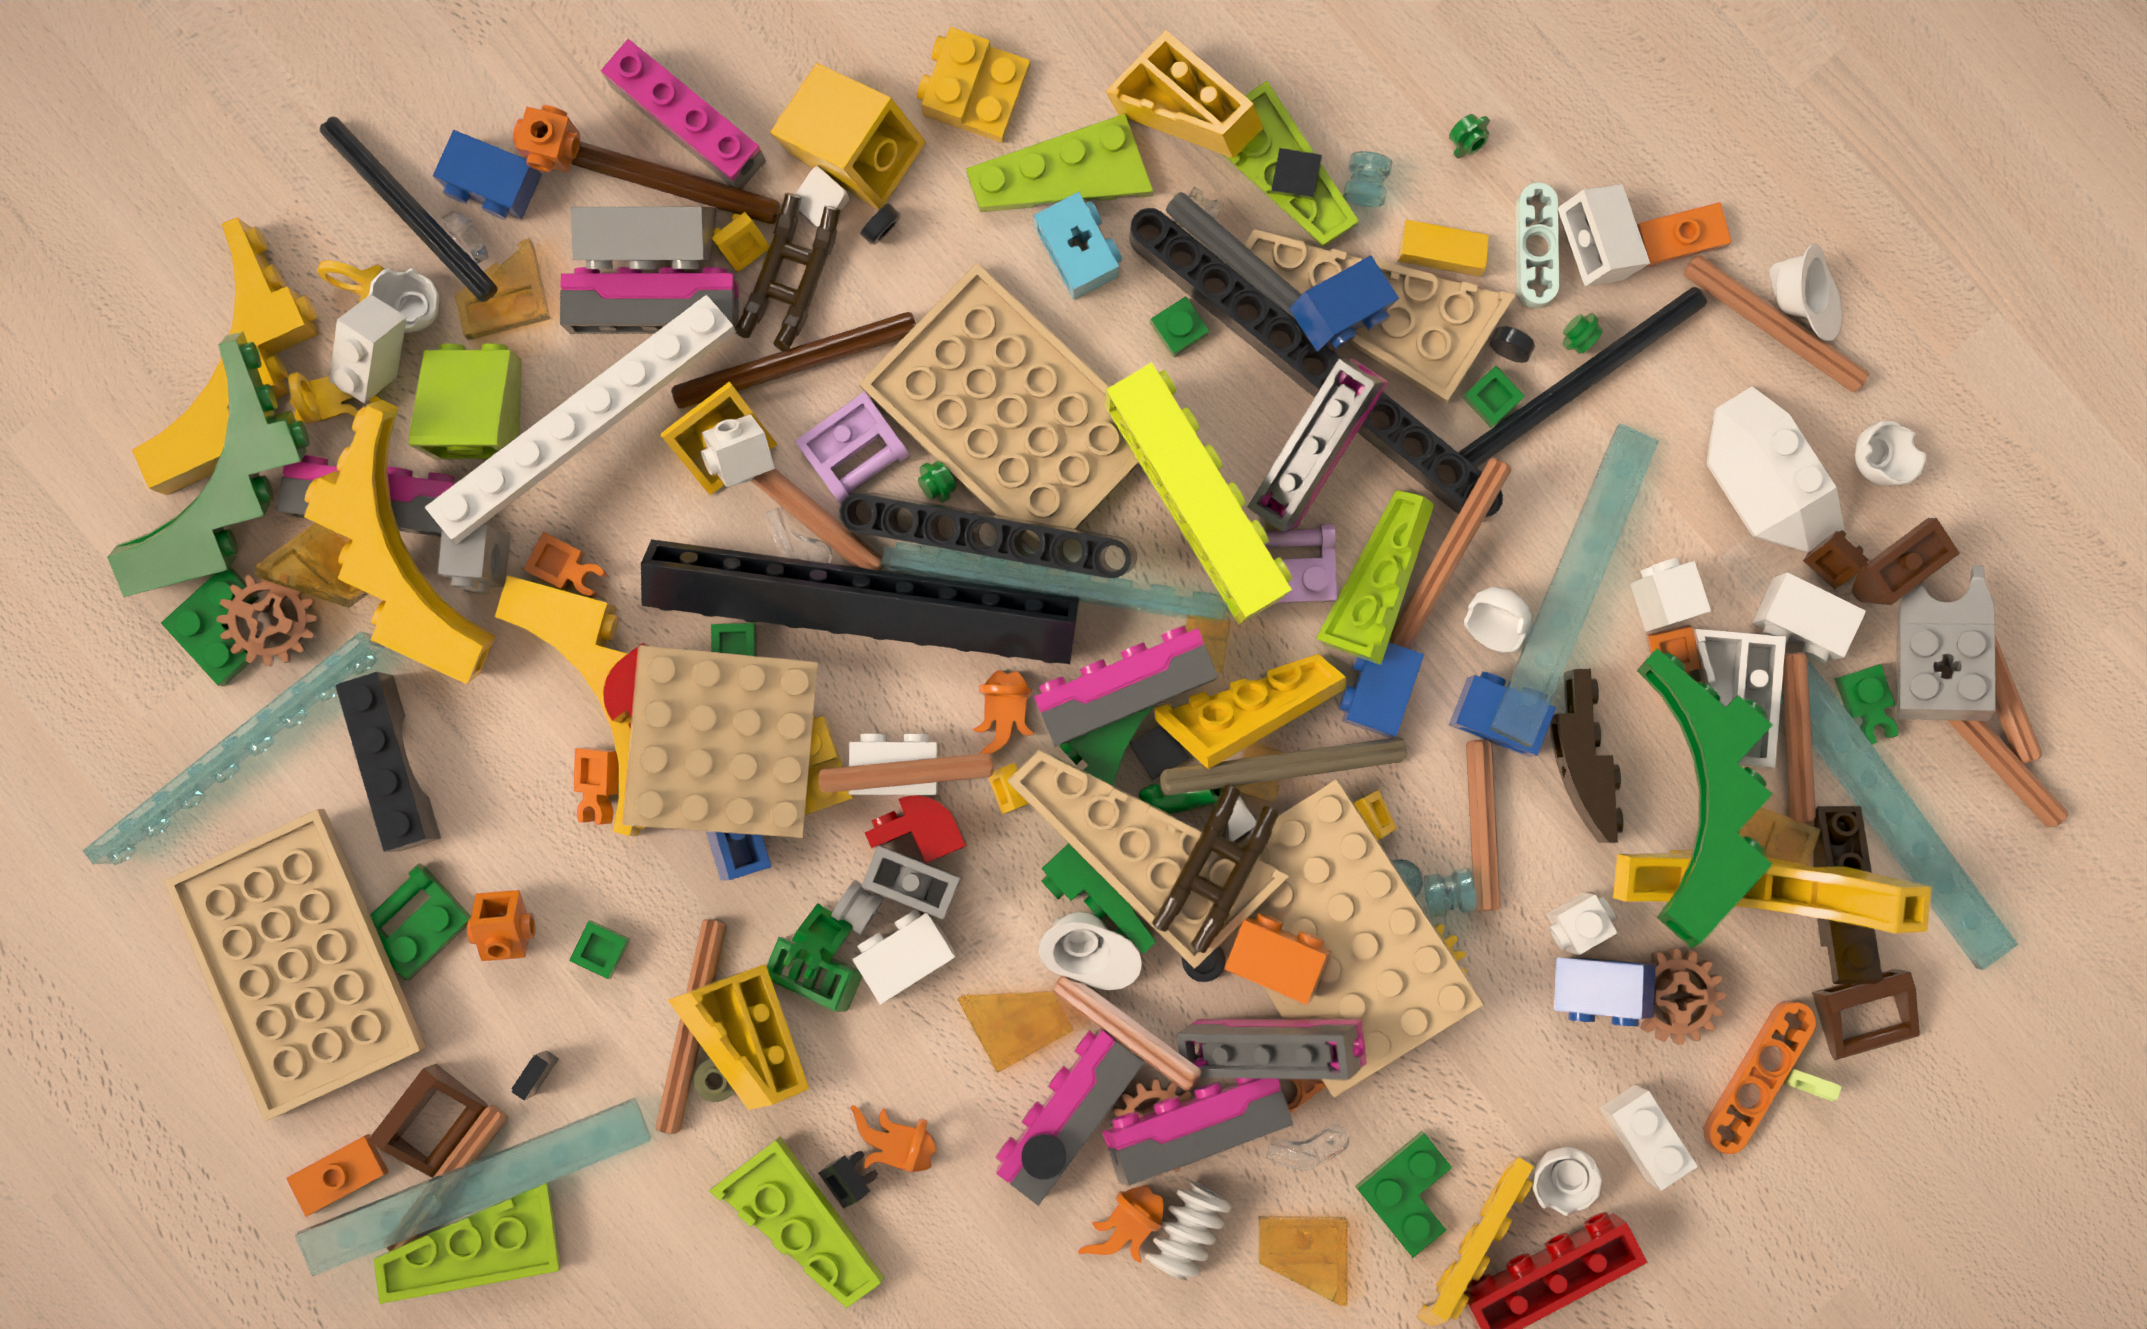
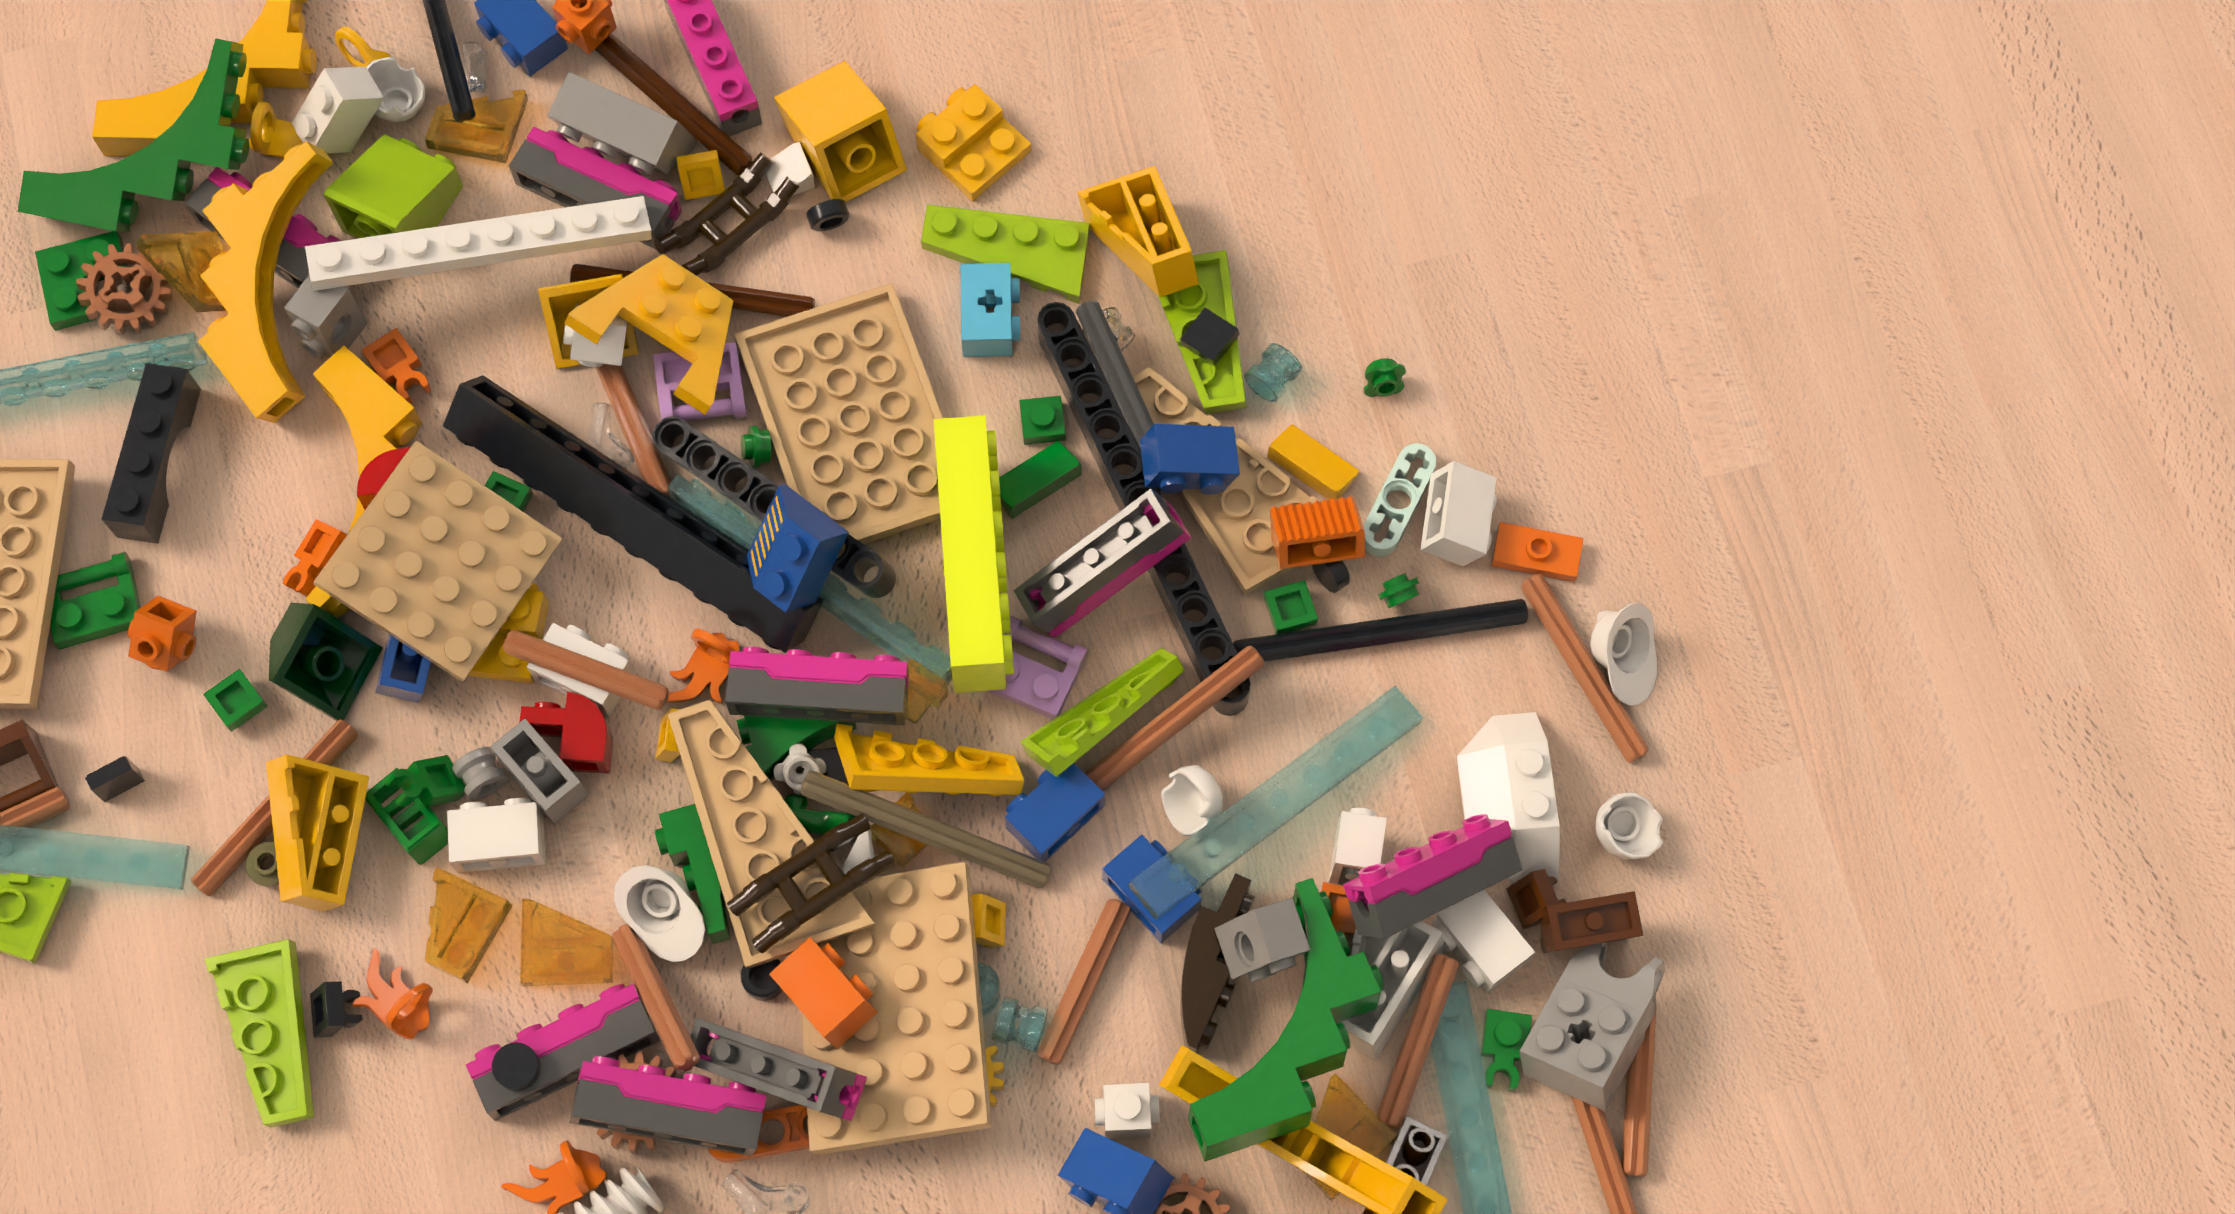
camera: 25 degrees right, 15 degrees down
(654, 877) = (320, 659): none -> dark green slope
(797, 392) = (673, 310): none -> yellow wing
(917, 1047) = (462, 925): none -> clear yellow wing
(1036, 574) = (793, 551): none -> blue slope
(1151, 769) = (797, 757): none -> white plate
(1206, 379) = (1037, 478): none -> green slope
(1492, 318) = (1317, 532): none -> orange brick
(1639, 724) = (1263, 941): none -> light grey brick
(1758, 594) = (1432, 876): none -> piece

